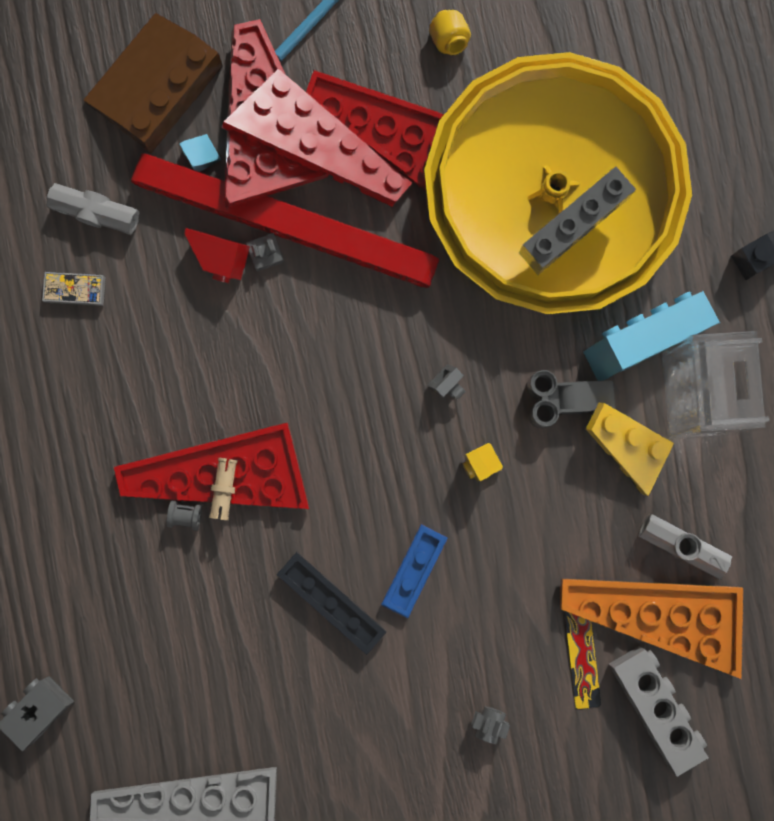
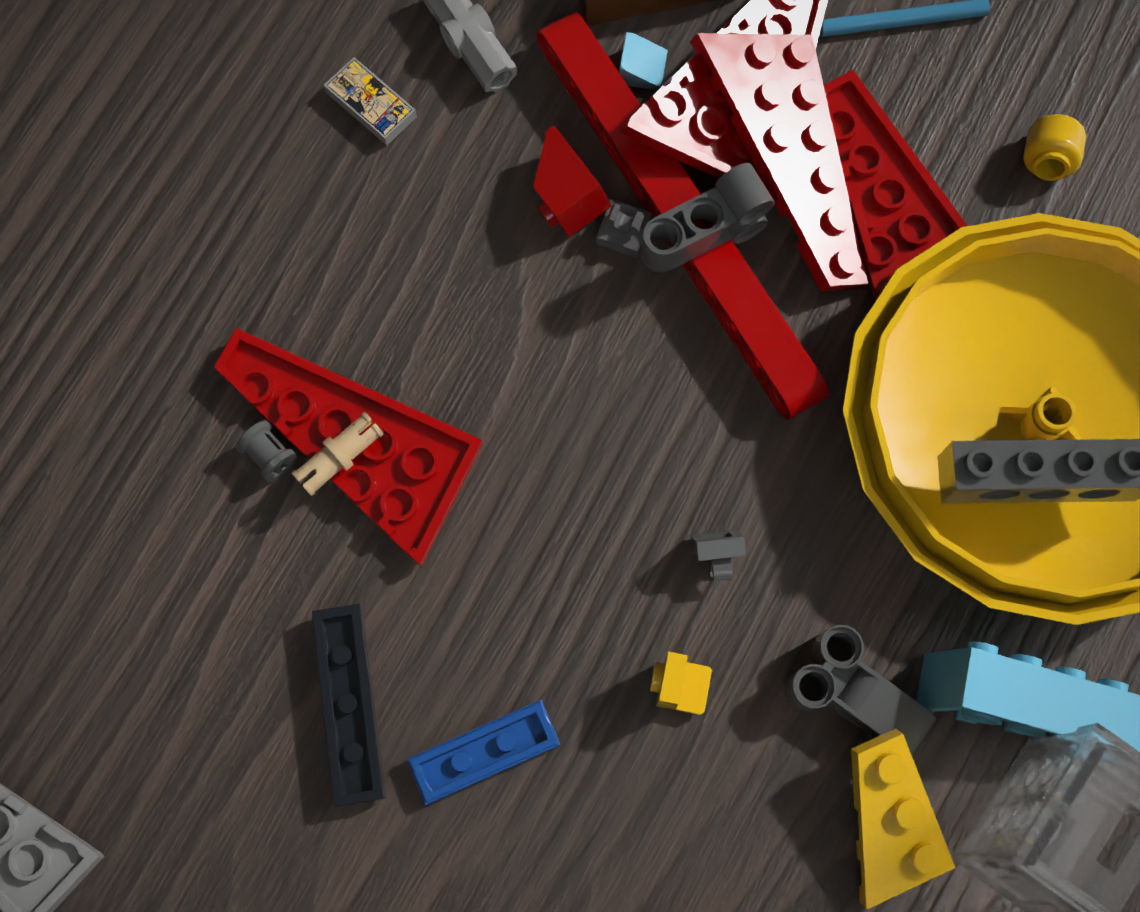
camera: 40 degrees right, 10 degrees down
(316, 202) = (732, 208): none -> dark grey piece

